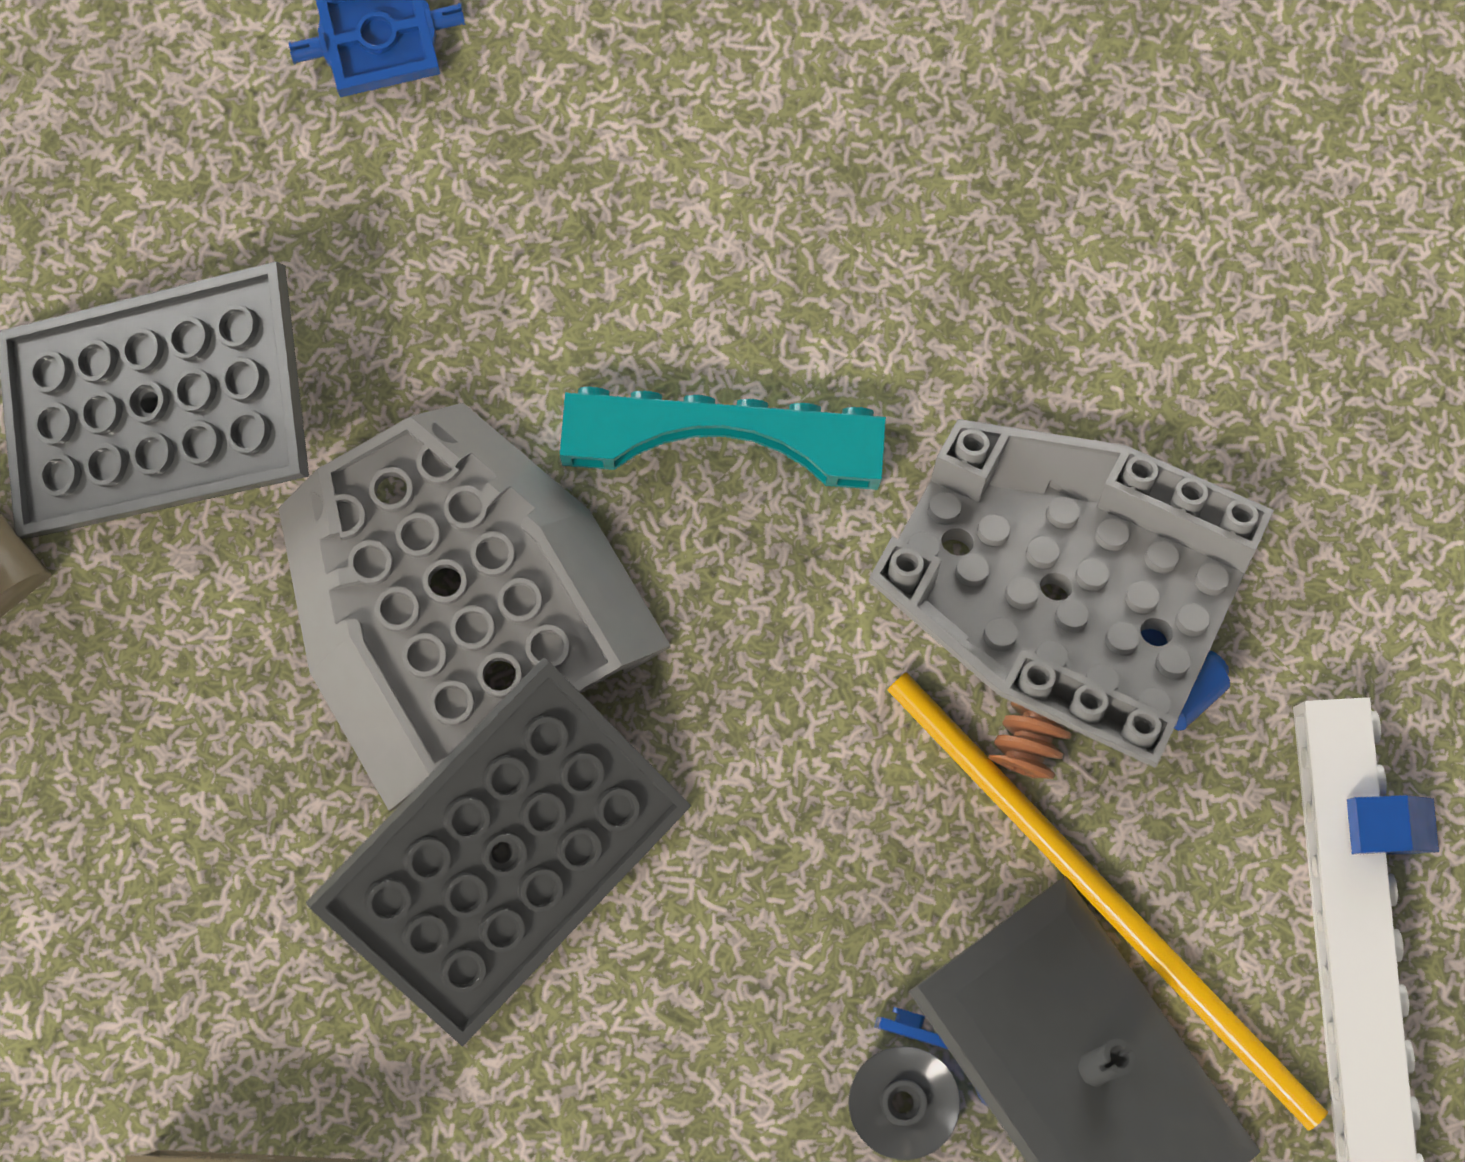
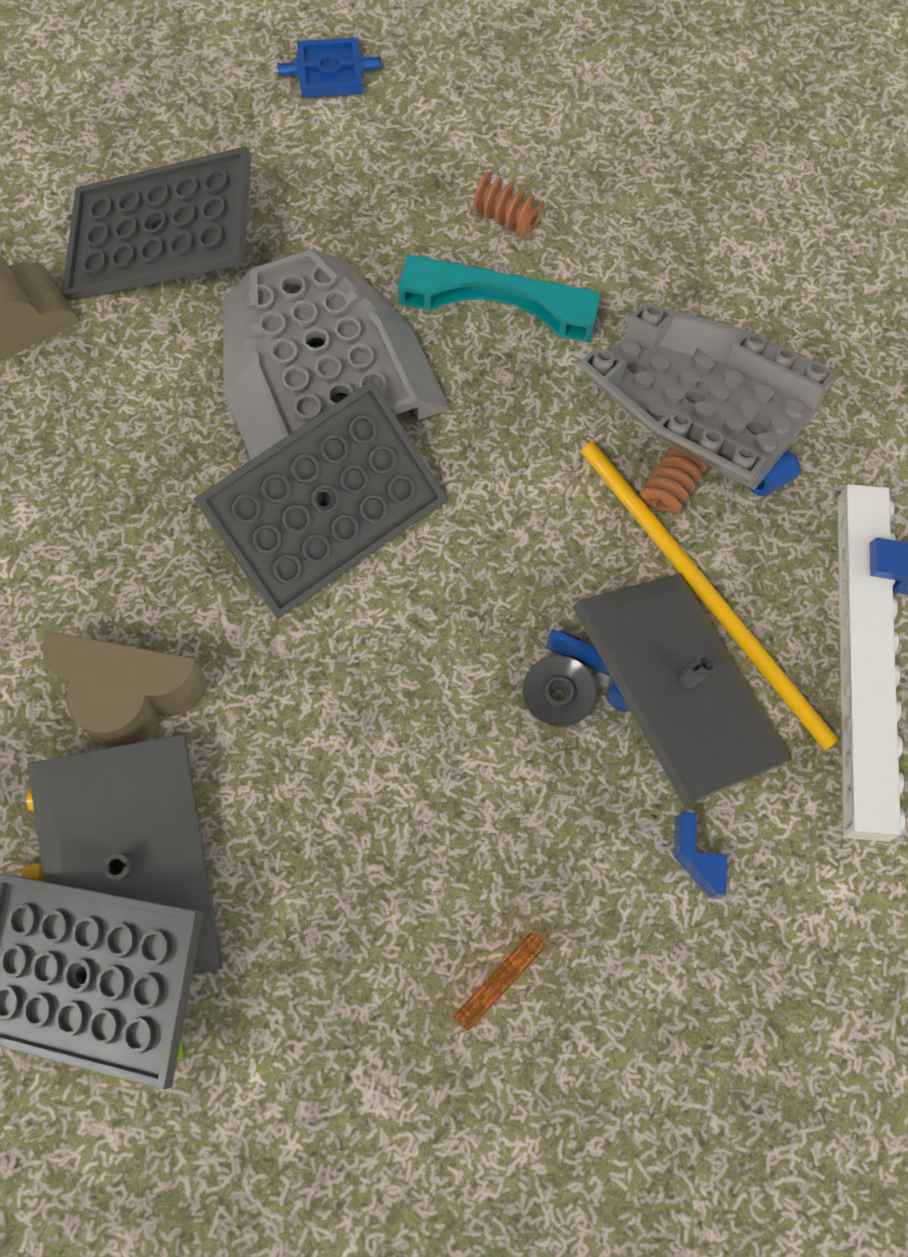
camera: 10 degrees right, 10 degrees down
(711, 266) = (505, 207): none -> nougat piece

